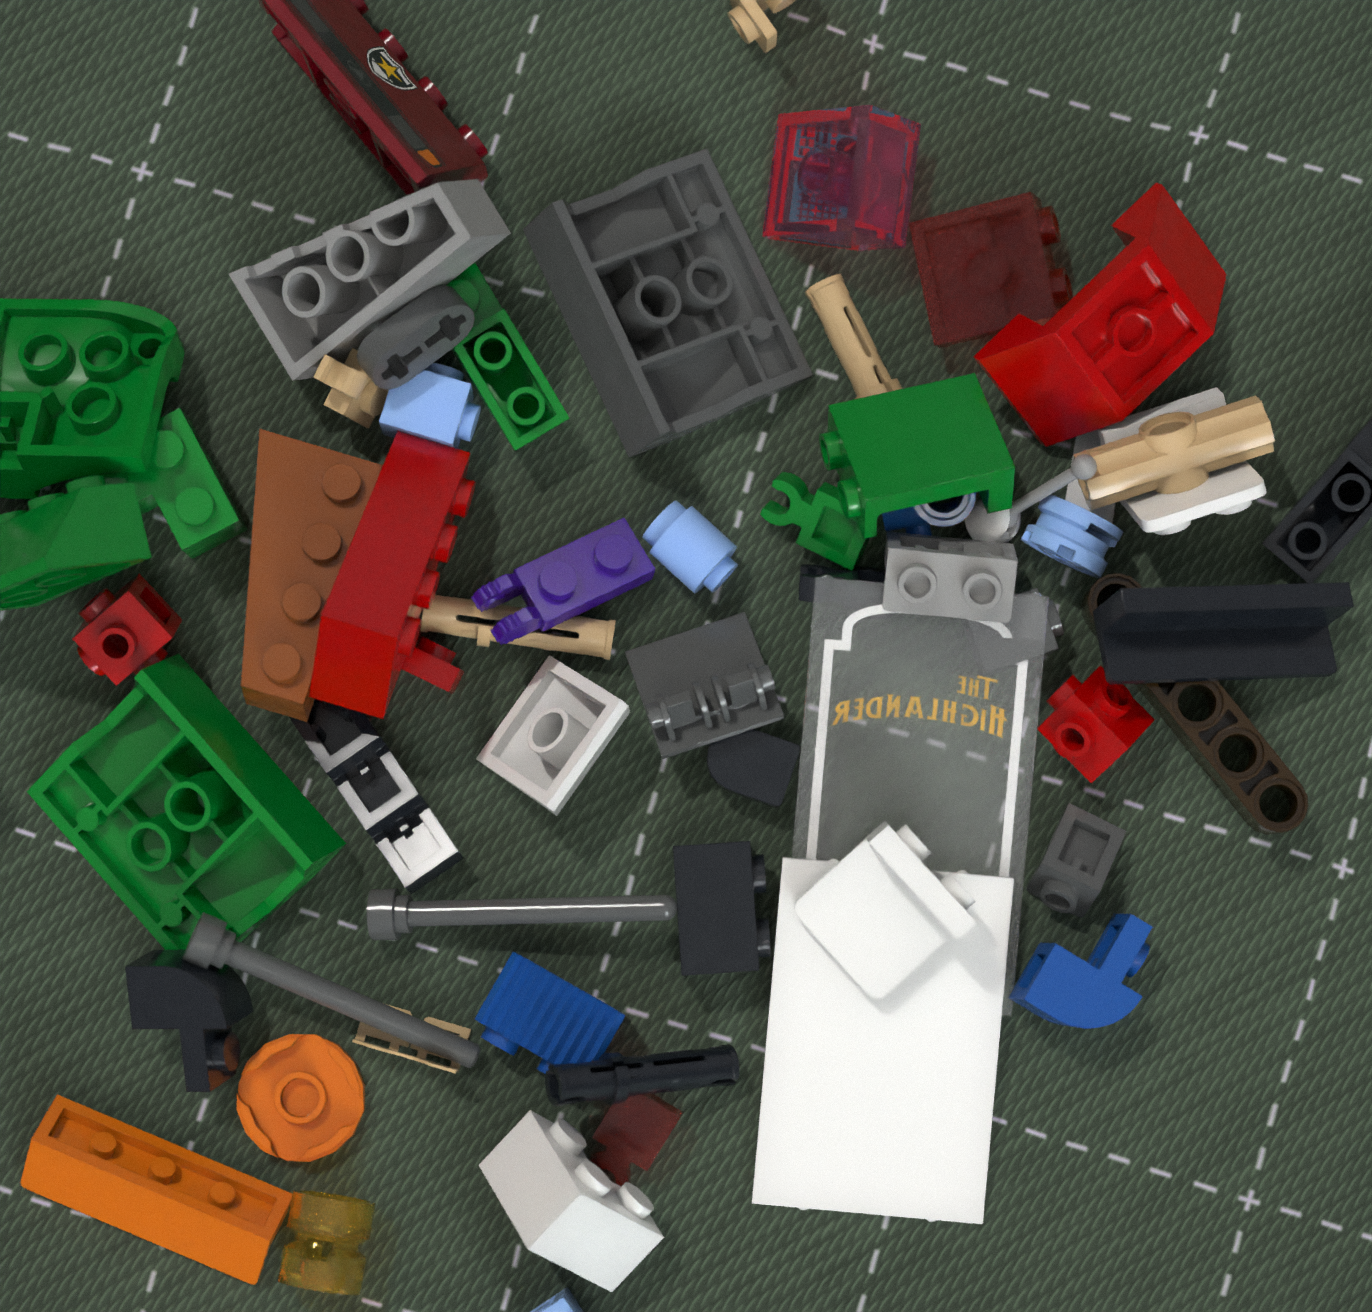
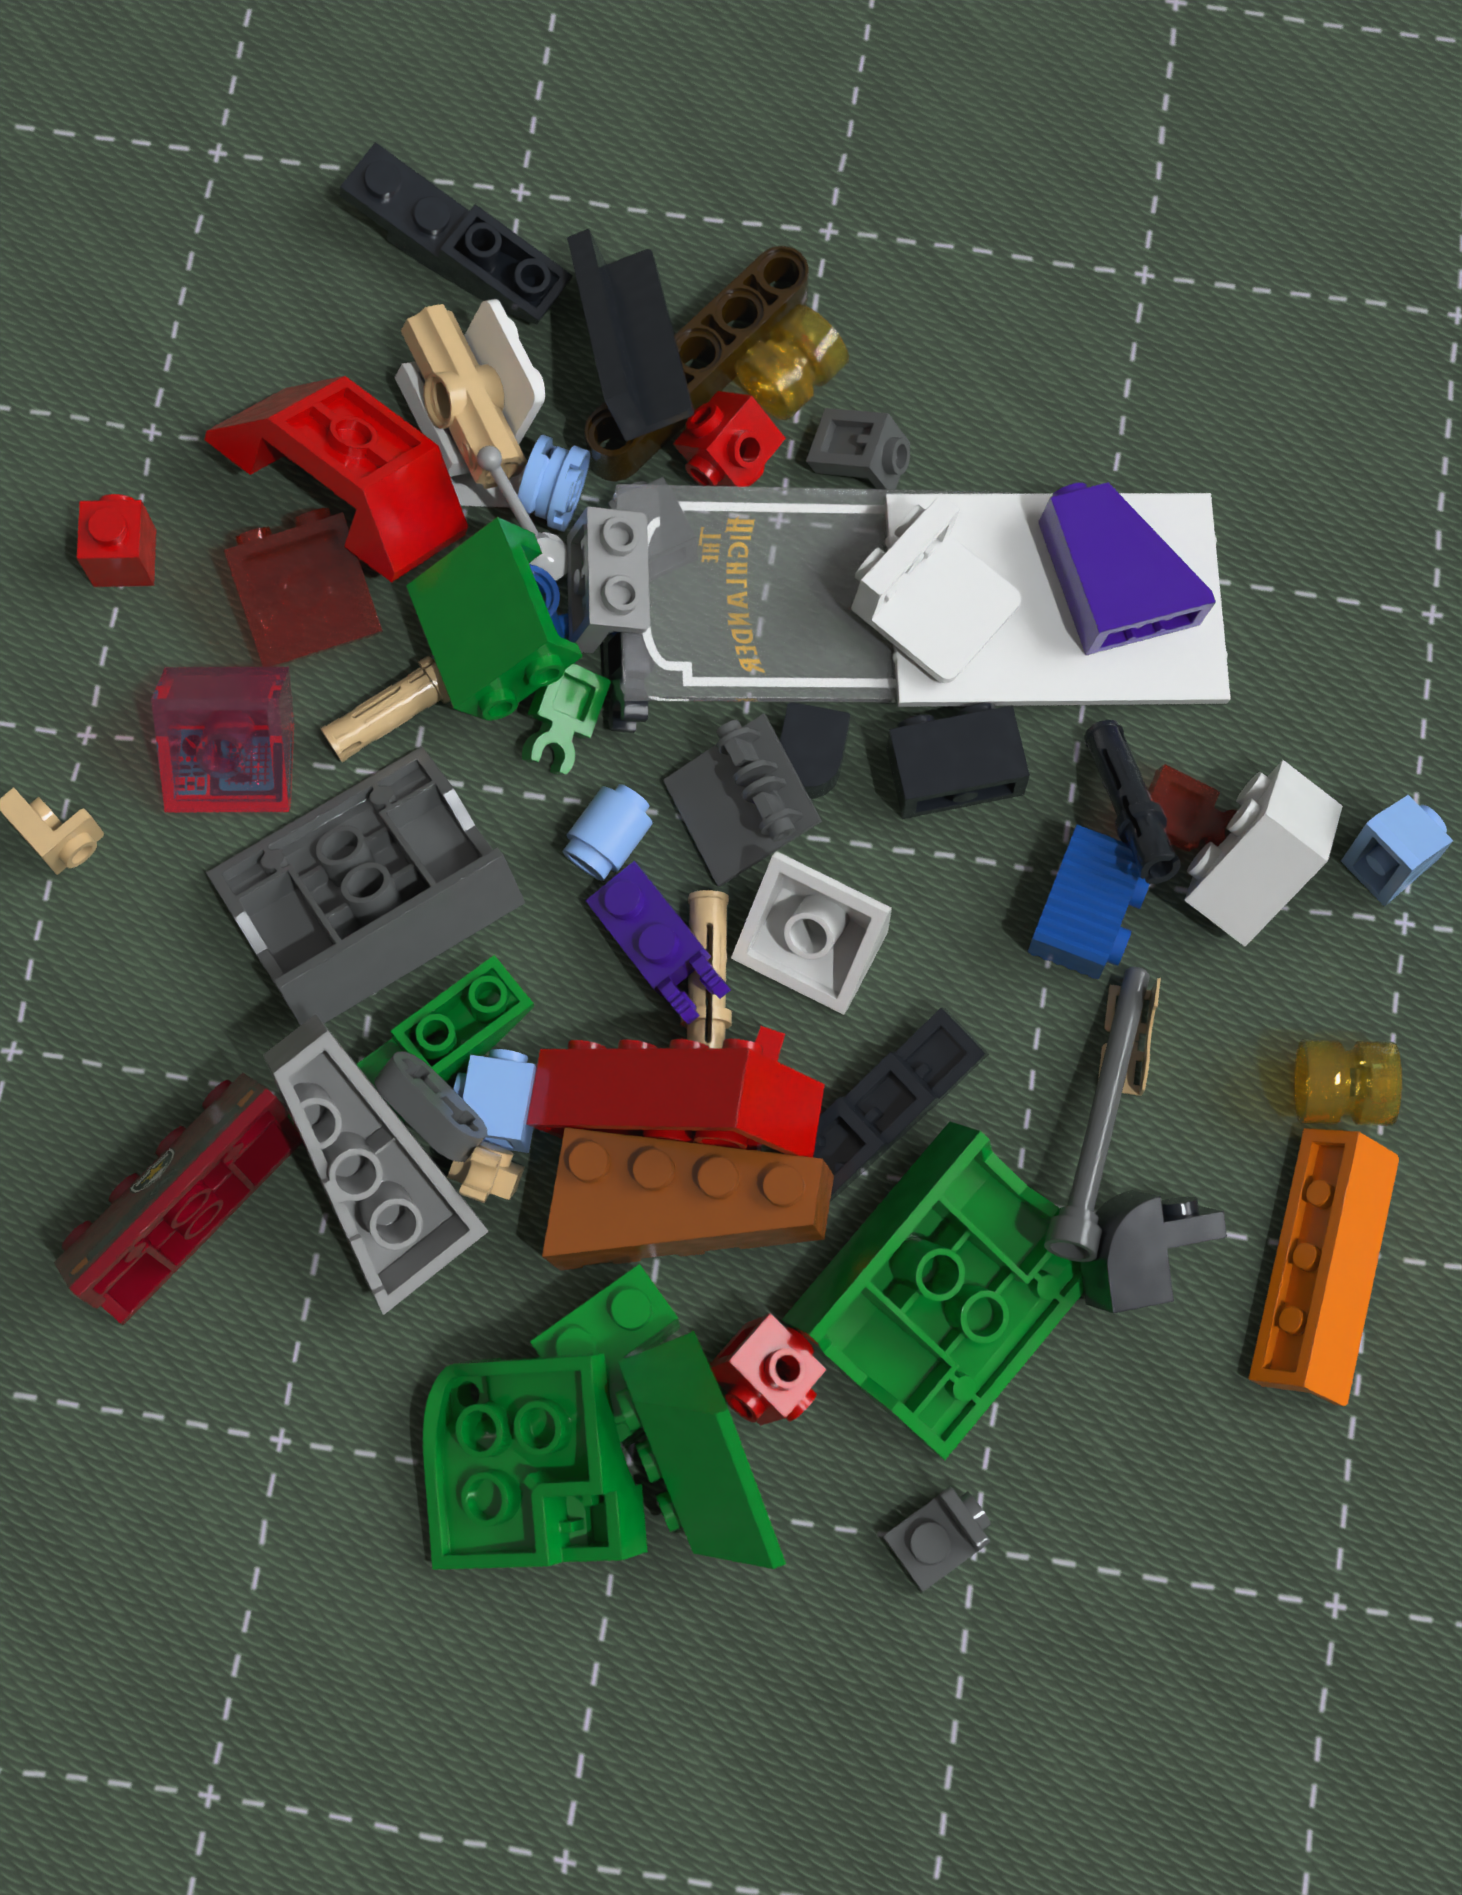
camera: 95 degrees left, 10 degrees down
(300, 1097) = (1206, 1137): orange tile -> none
(393, 914) = (1011, 1062): dark grey piece -> none
(895, 1101) = (1117, 570): none -> dark purple slope
(1068, 87) = (116, 542): none -> red brick
(1085, 993) = (976, 418): blue brick -> none
(1179, 802) = (799, 355): none -> clear yellow wheel

